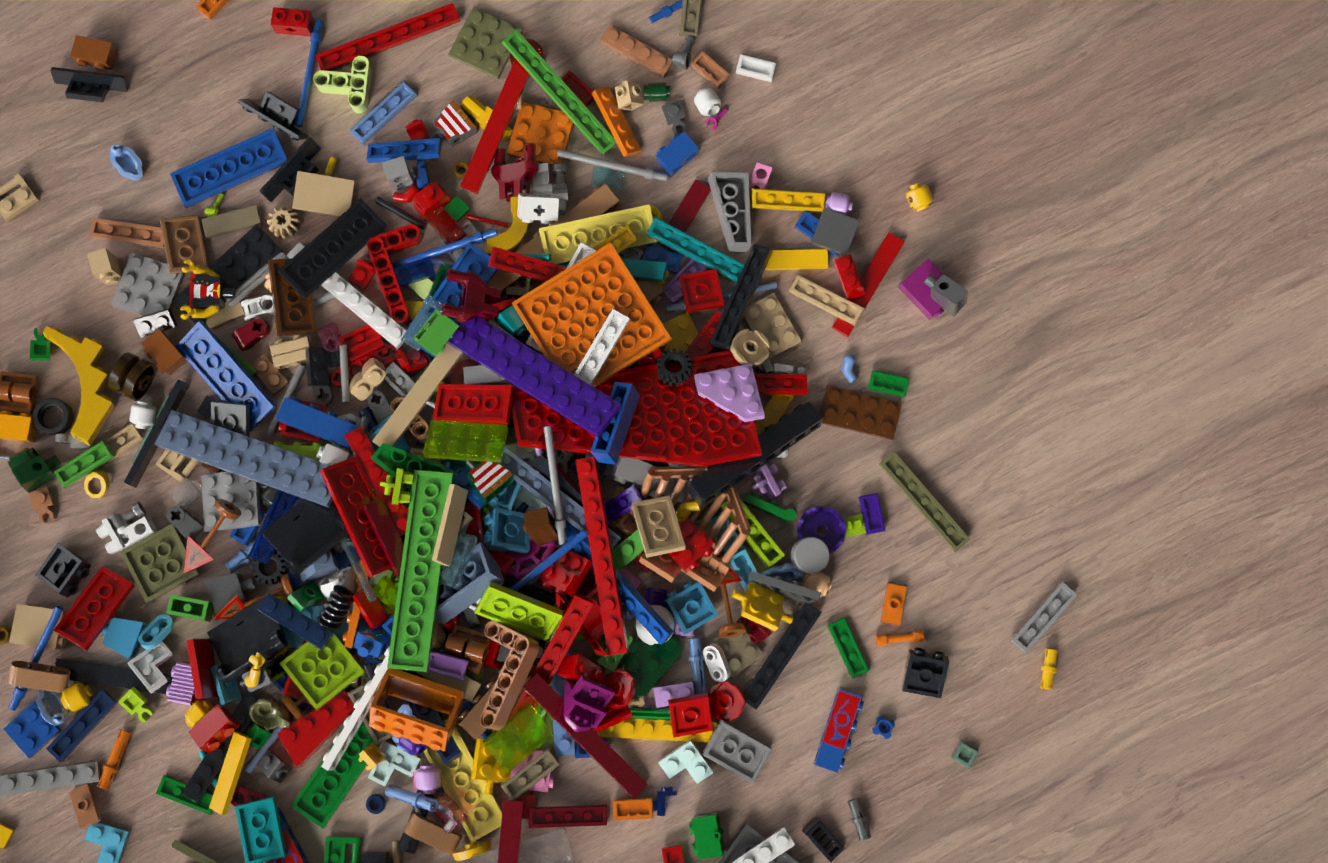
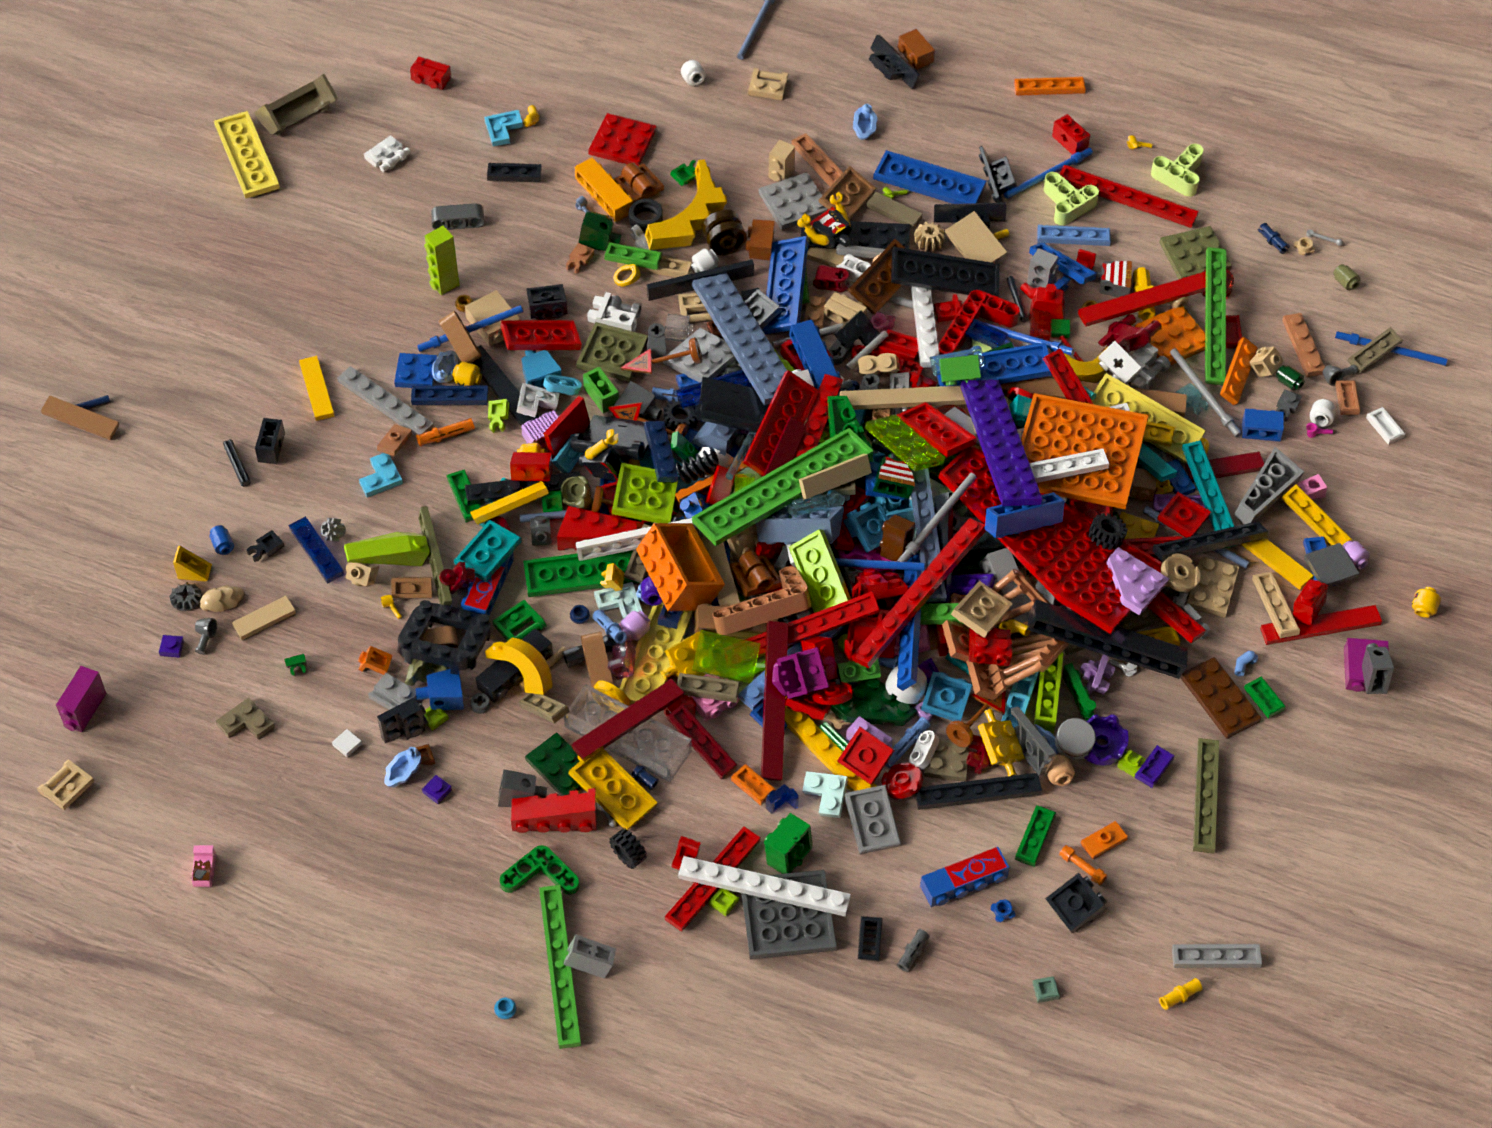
camera: 45 degrees right, 25 degrees down
(148, 324) = (783, 221): plate -> none
(401, 477) = (824, 424): lime hips -> none
(448, 665) = (731, 565): medium lavender tile -> none
(473, 297) = (1010, 373): dark red connector -> none

